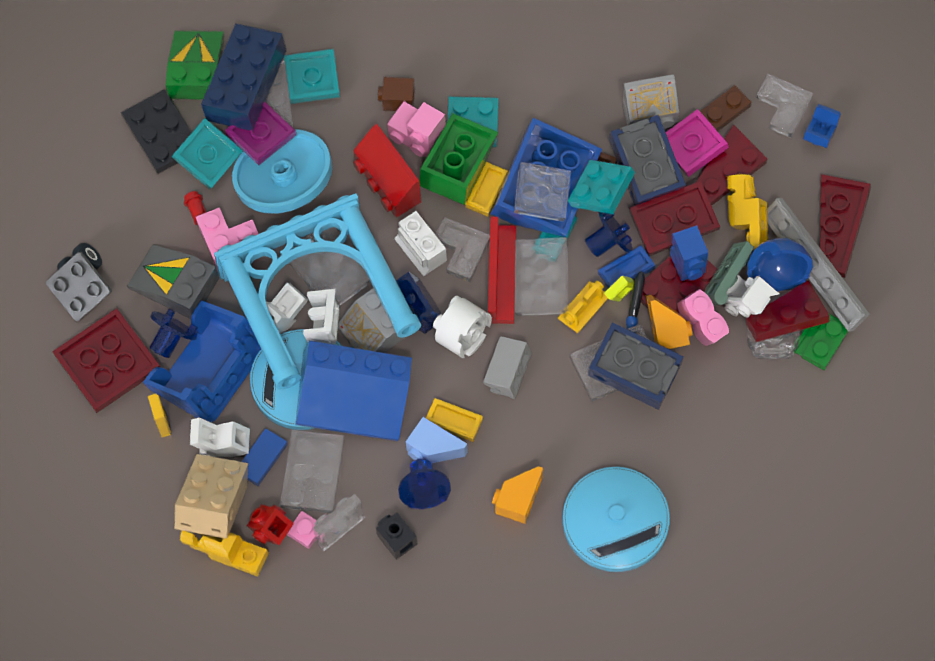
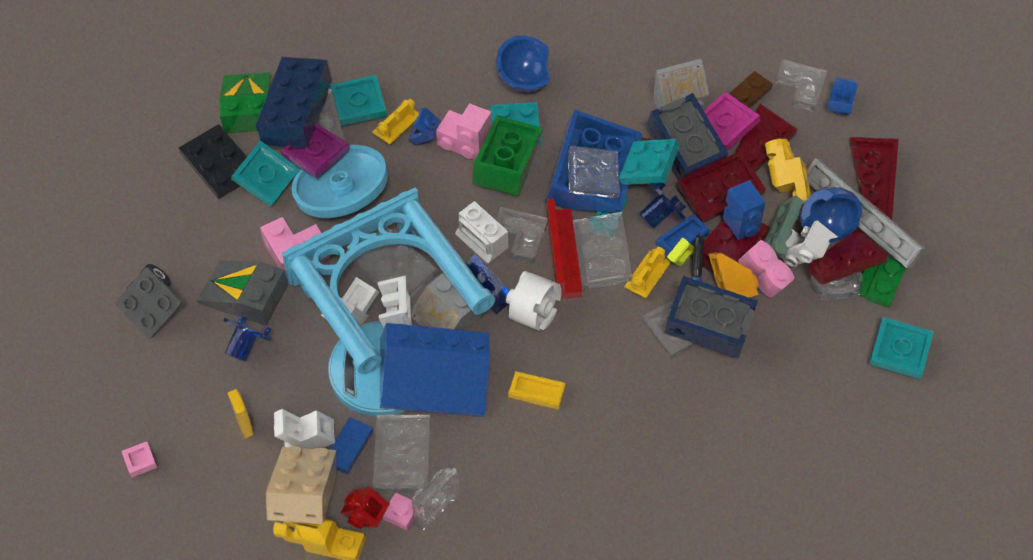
camera: 10 degrees left, 10 degrees down
(58, 449) = (139, 459): none -> bright pink plate
(106, 360) = (182, 370): dark red plate -> none
(194, 203) = (256, 218): red pin -> none
(210, 366) = (289, 363): blue windscreen -> none
(349, 106) = (397, 122): none -> yellow hinge
(377, 114) = (424, 127): none -> blue bracket
(387, 172) = (442, 171): red slope -> none
(395, 92) = (441, 102): reddish brown brick -> none
(396, 535) = (495, 505): black brick -> none
(424, 486) = (518, 454): clear blue piece -> none
(434, 443) = (522, 413): light blue slope -> none
(486, 189) = (537, 181): yellow tile -> none
(488, 54) = (523, 63): none -> blue cylinder
(507, 367) = (583, 334): light grey hinge -> none
(518, 495) = (613, 453): light orange slope -> none
(616, 519) = (714, 467): medium azure dish -> none
(826, 416) = (901, 348): none -> teal plate

